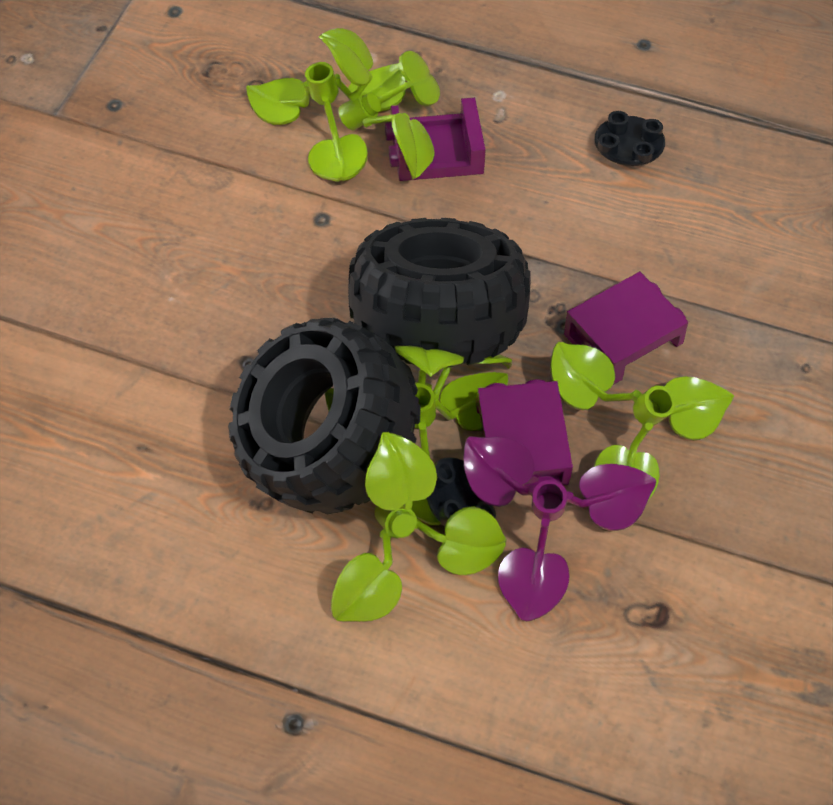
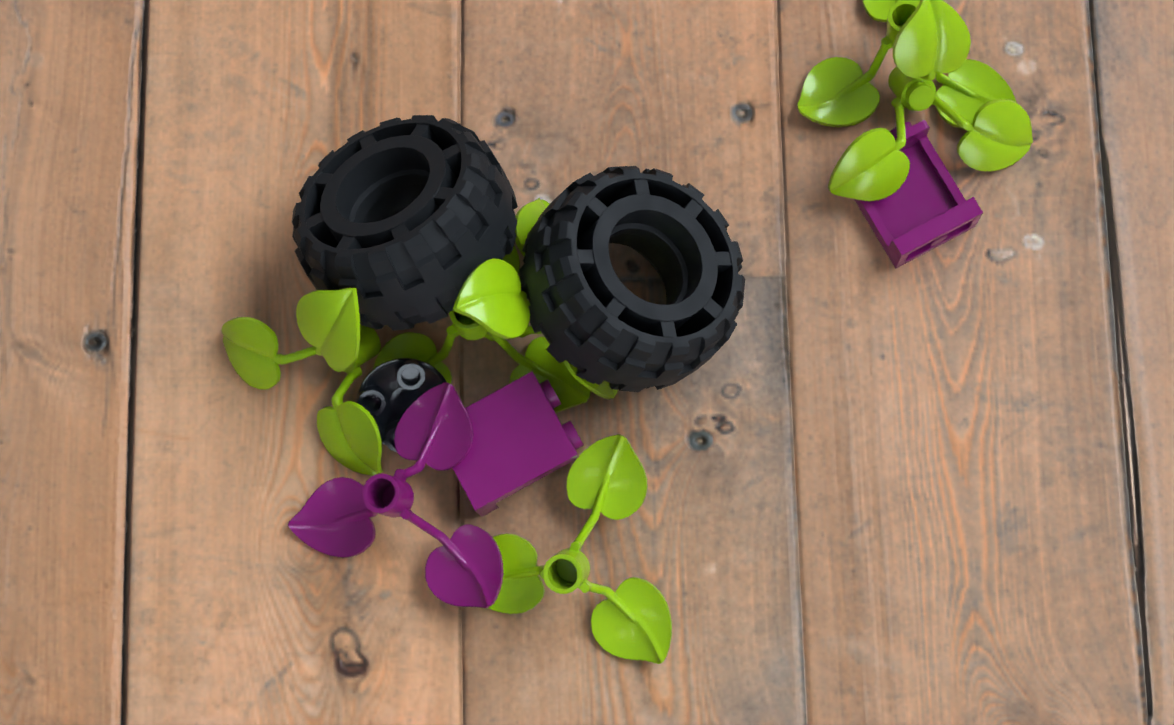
camera: 70 degrees right, 20 degrees up
(626, 322) = (713, 509): magenta panel -> none
(630, 139) = (1020, 423): black dish -> none

